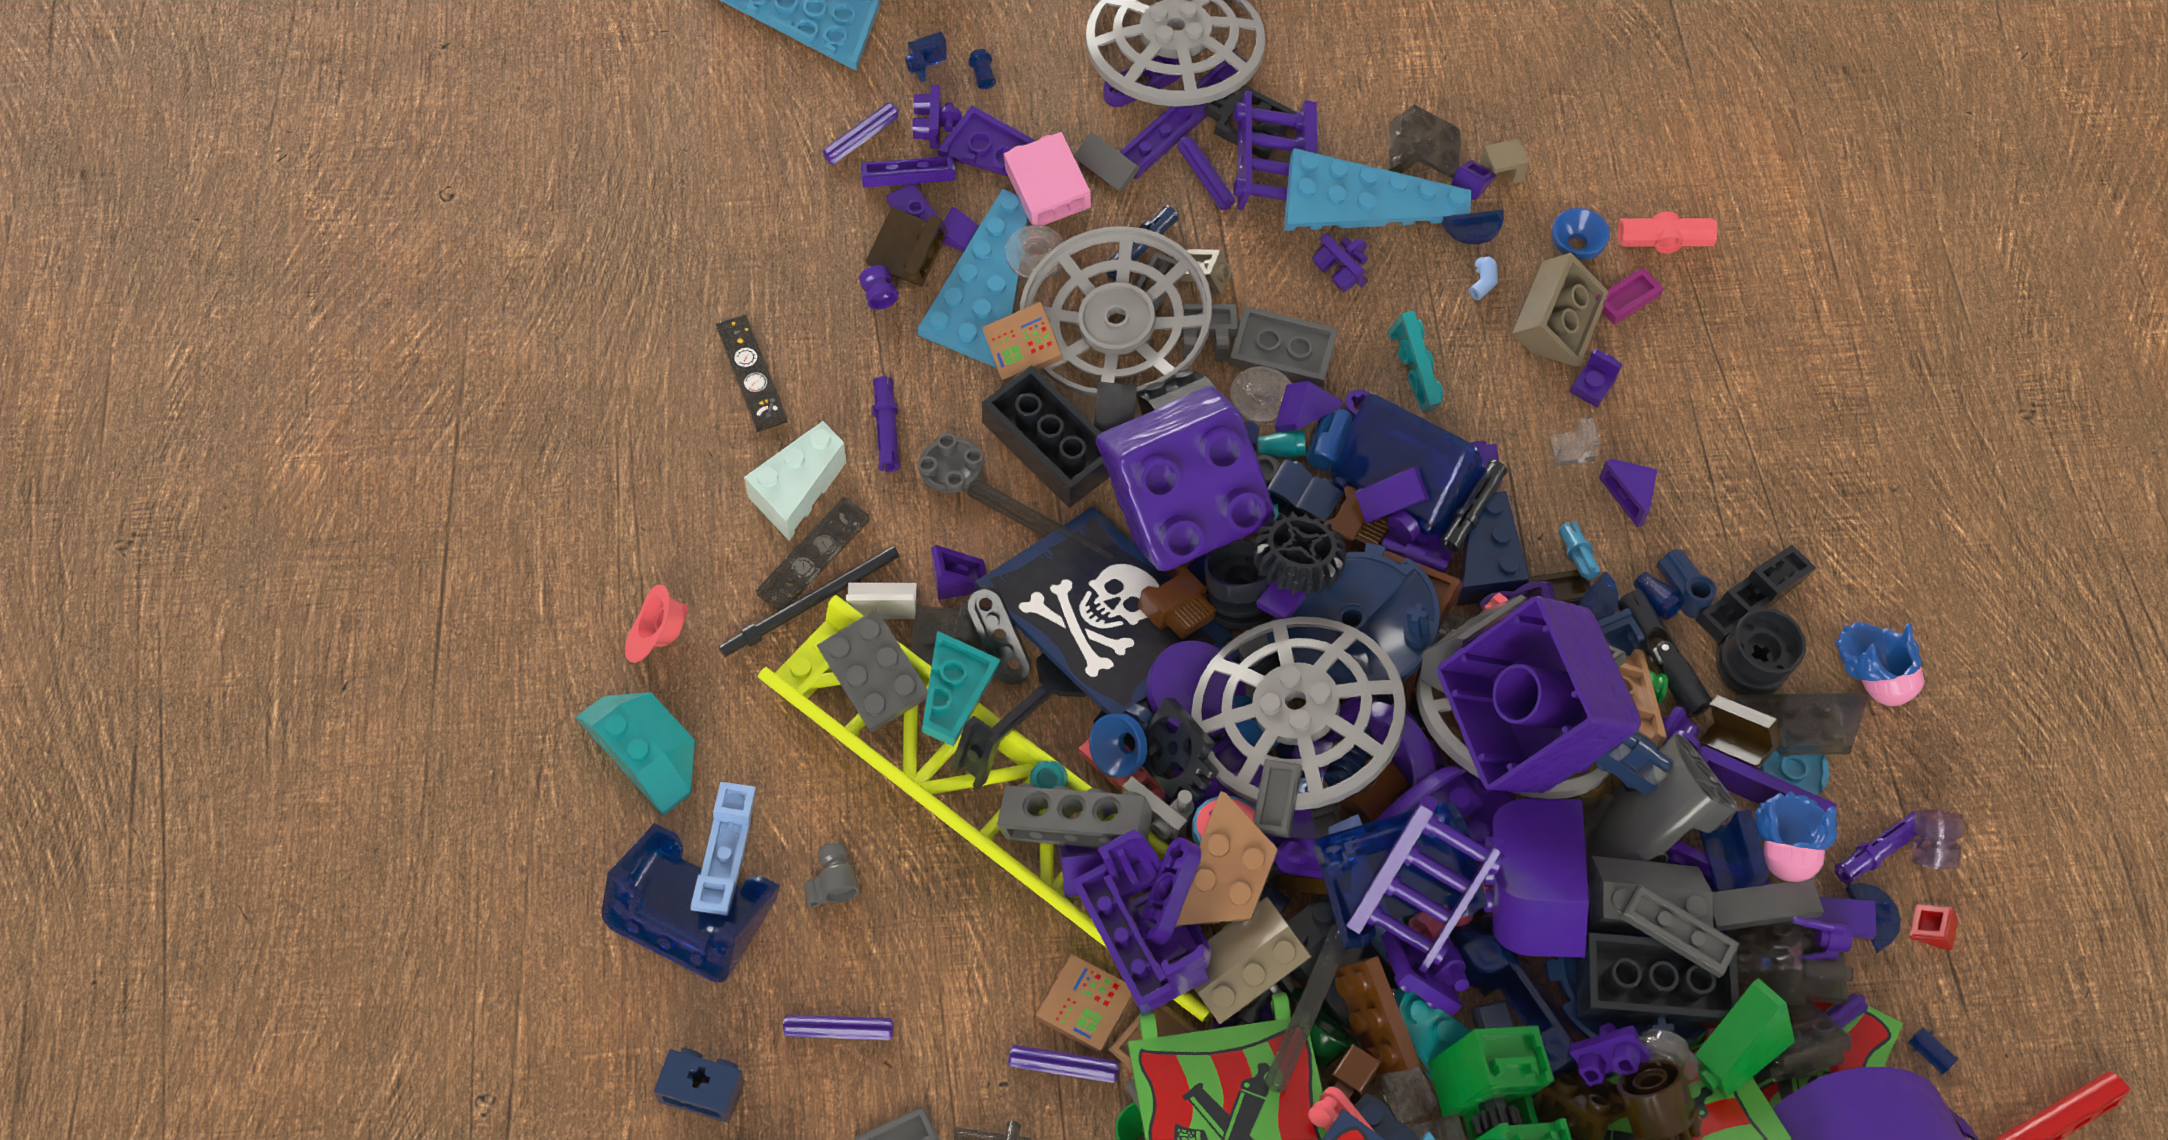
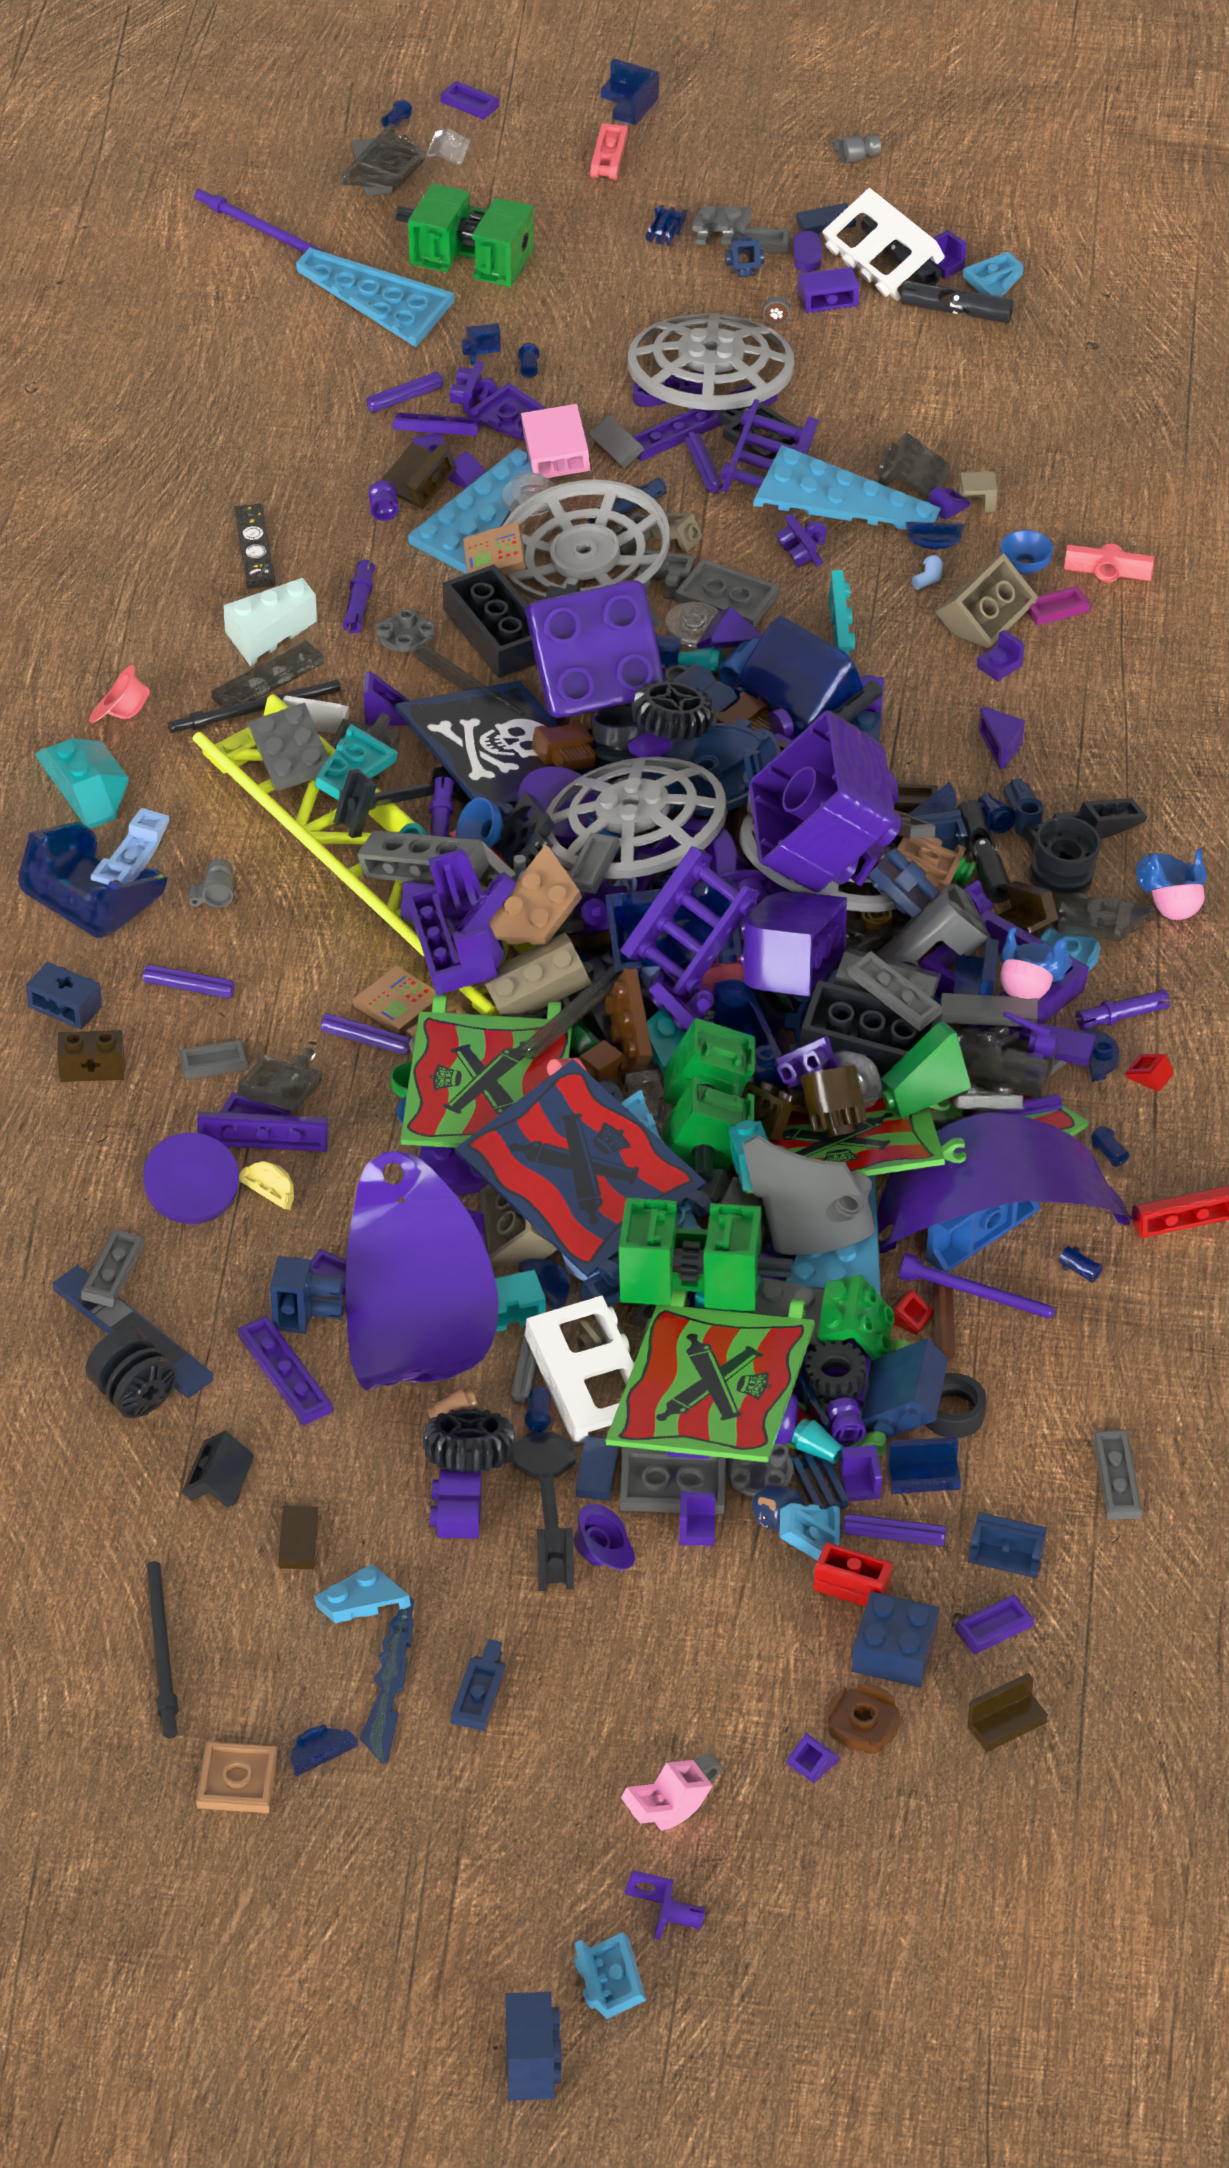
camera: 15 degrees right, 15 degrees down
(1006, 649) = (396, 734): black plate -> none
(1066, 731) = (441, 807): none -> dark purple pin
(1392, 495) = (775, 694): dark purple tile -> none
(1576, 446) = (964, 702): clear panel -> none
(1579, 550) = (935, 769): dark azure axle -> none
(1937, 839) = (1169, 1003): wheel -> none

